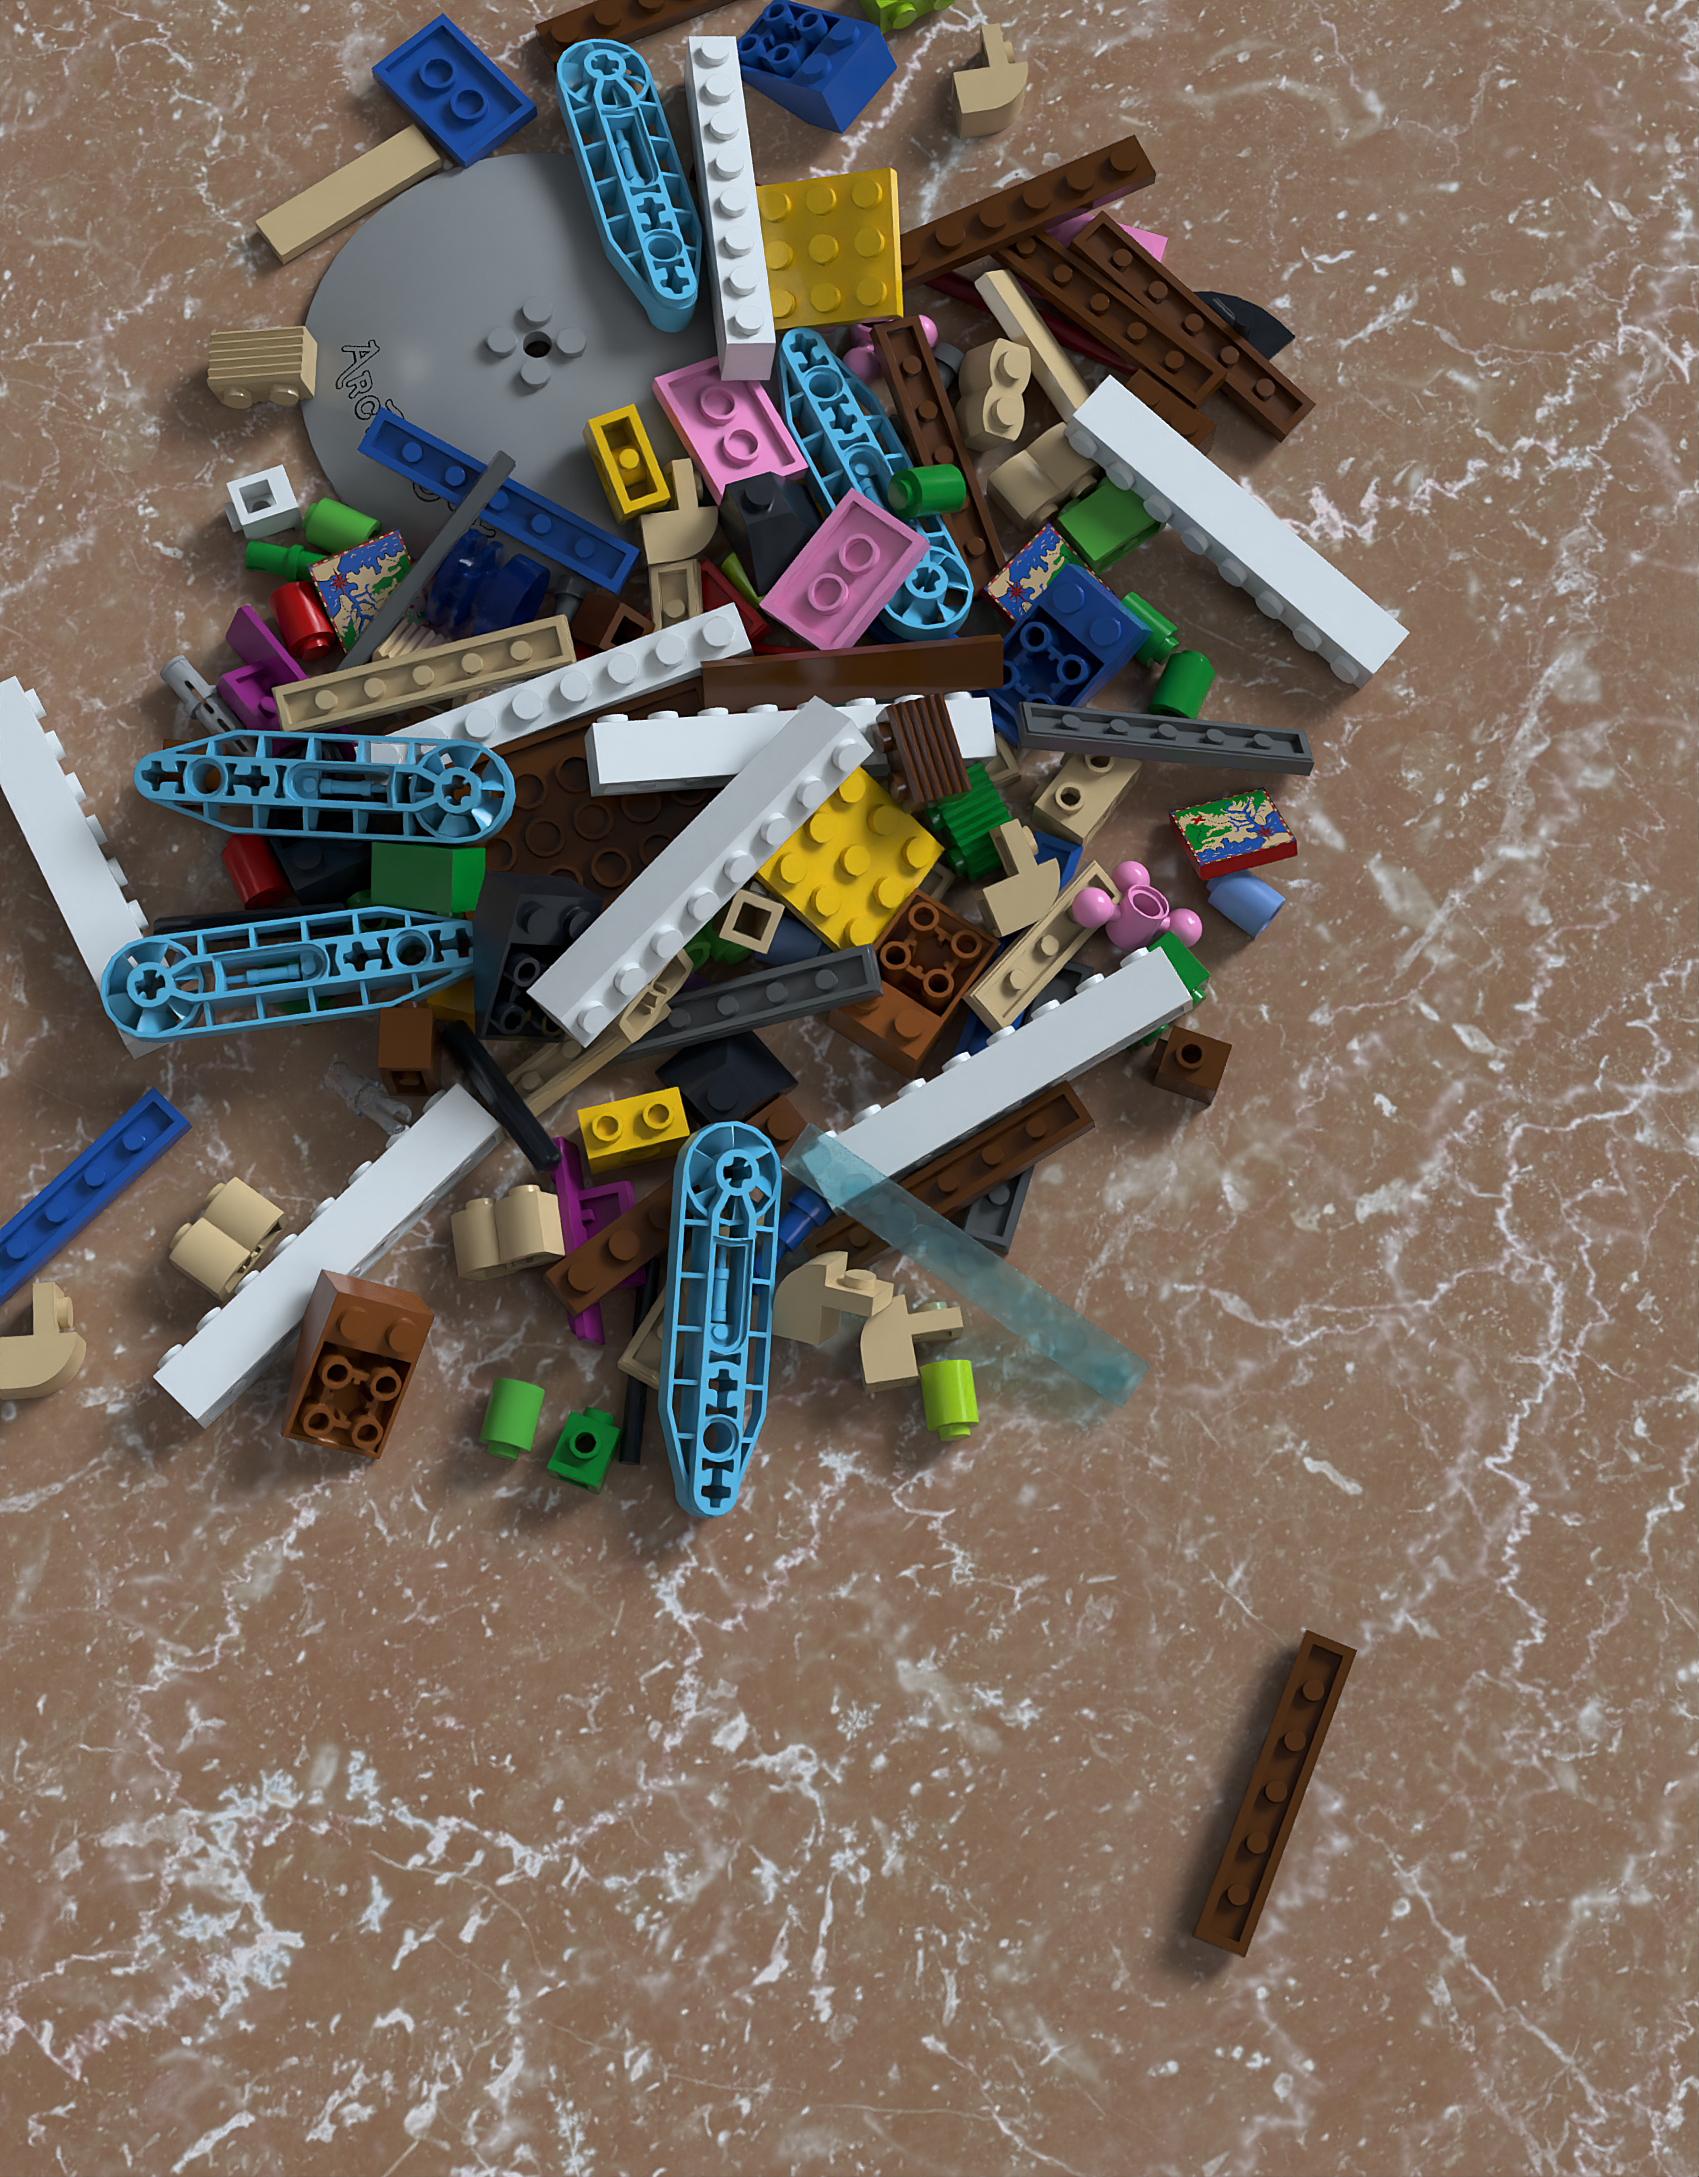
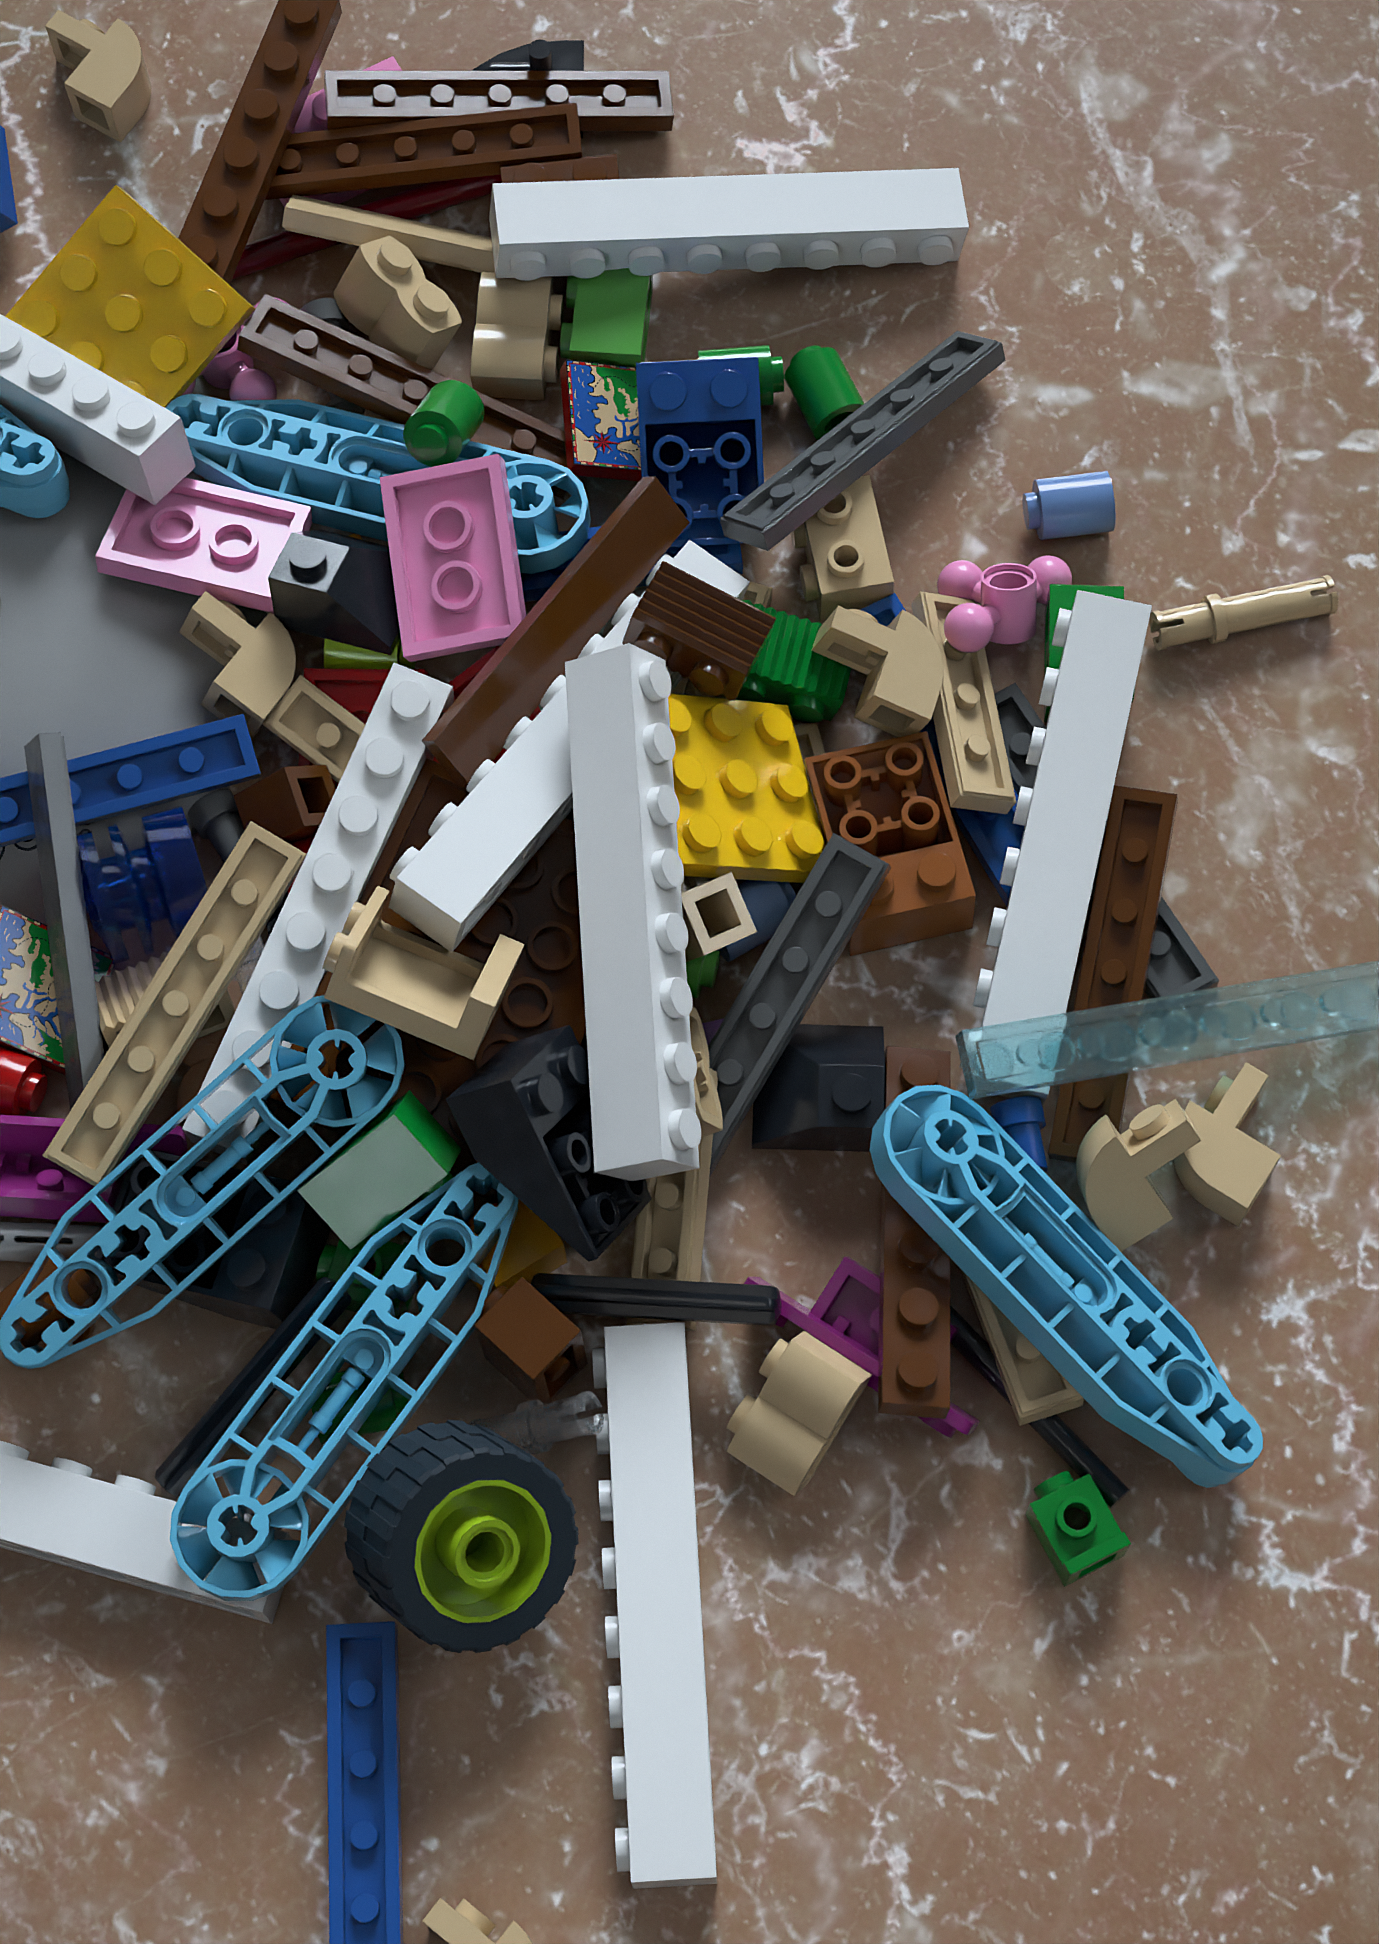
camera: 40 degrees left, 5 degrees down
(227, 1238) = (548, 1692): tan brick -> none
(255, 871) = (200, 1338): red brick -> none
(257, 1110) = (461, 1536): none -> black wheel
(353, 1363) = (795, 1669): dark orange slope -> none
(511, 1418) = (981, 1569): bright green brick -> none
(550, 791) = (417, 981): none -> tan panel
(626, 464) = (152, 650): yellow brick -> none
(634, 1130) = (799, 1208): yellow brick -> none
(949, 1399) = (1321, 1152): lime brick -> none
(1190, 1064) = (1185, 678): reddish brown brick -> none
(1233, 833) = (1004, 461): tile -> none
(1273, 1062) = (1218, 617): none -> tan pin

